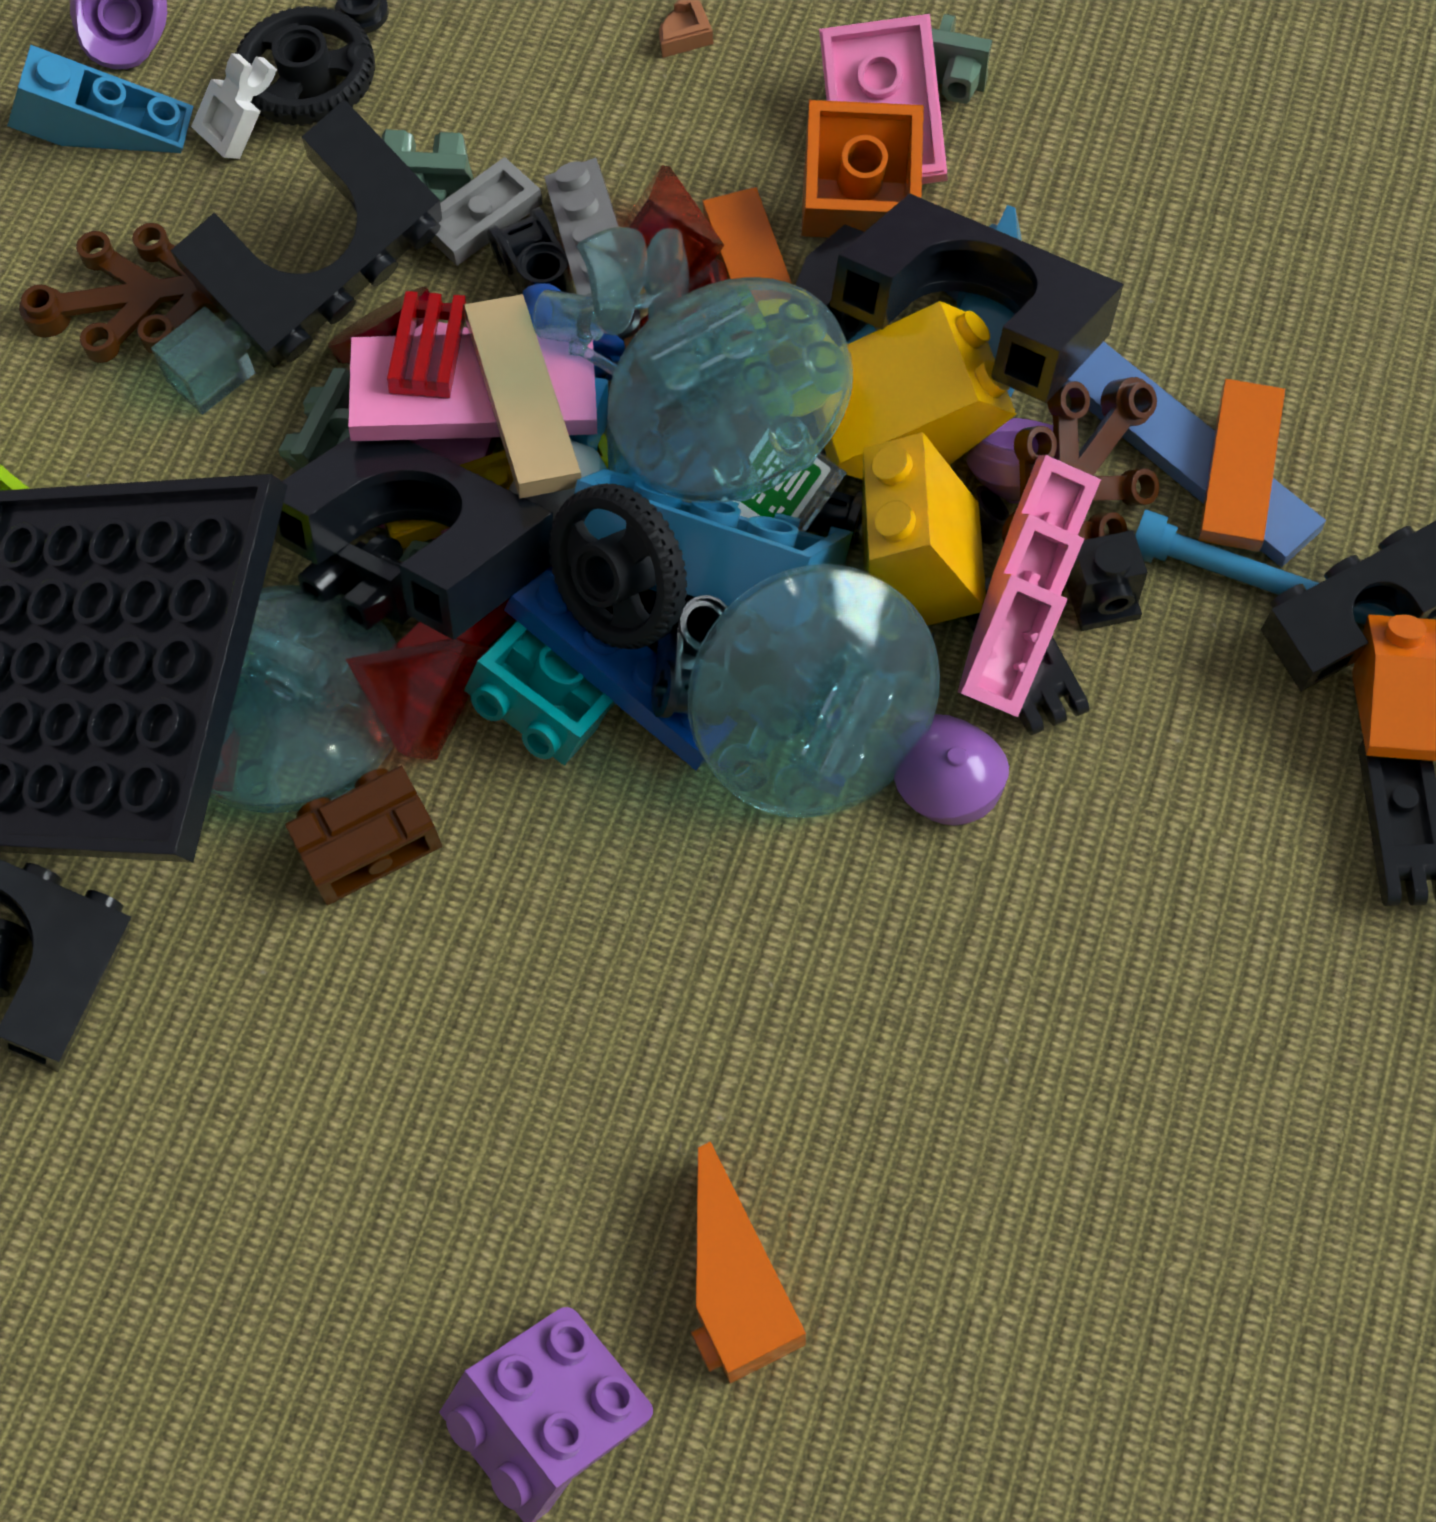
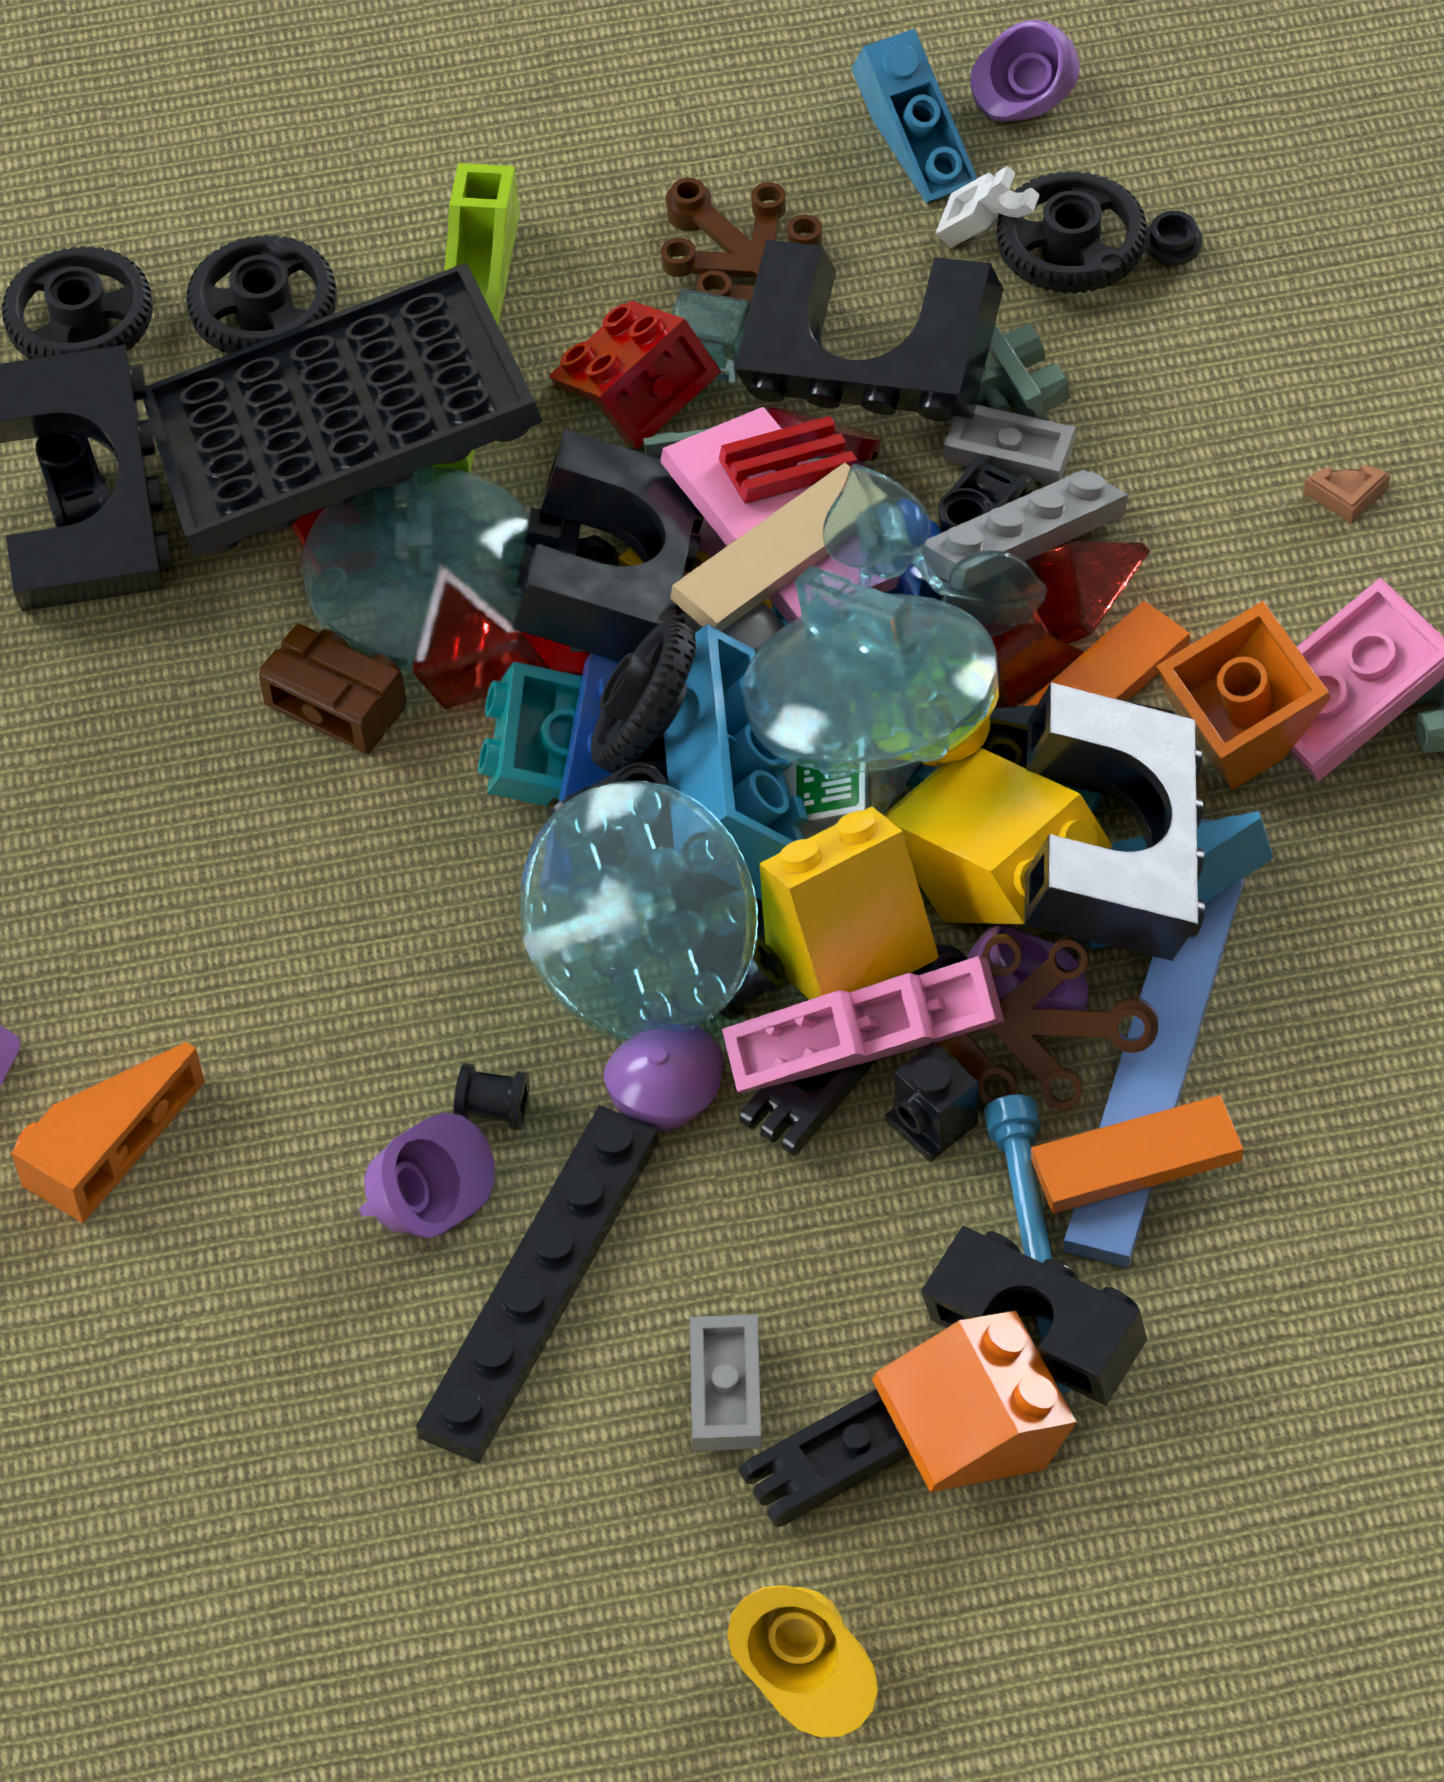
camera: 60 degrees right, 10 degrees down
(197, 422) = (638, 369): none -> red bracket
(894, 916) = (492, 1096): none -> black bush
(959, 1014) = (430, 1177): none -> medium lavender piece
(1105, 977) = (537, 1284): none -> black plate
(1292, 872) = (725, 1382): none -> light grey plate

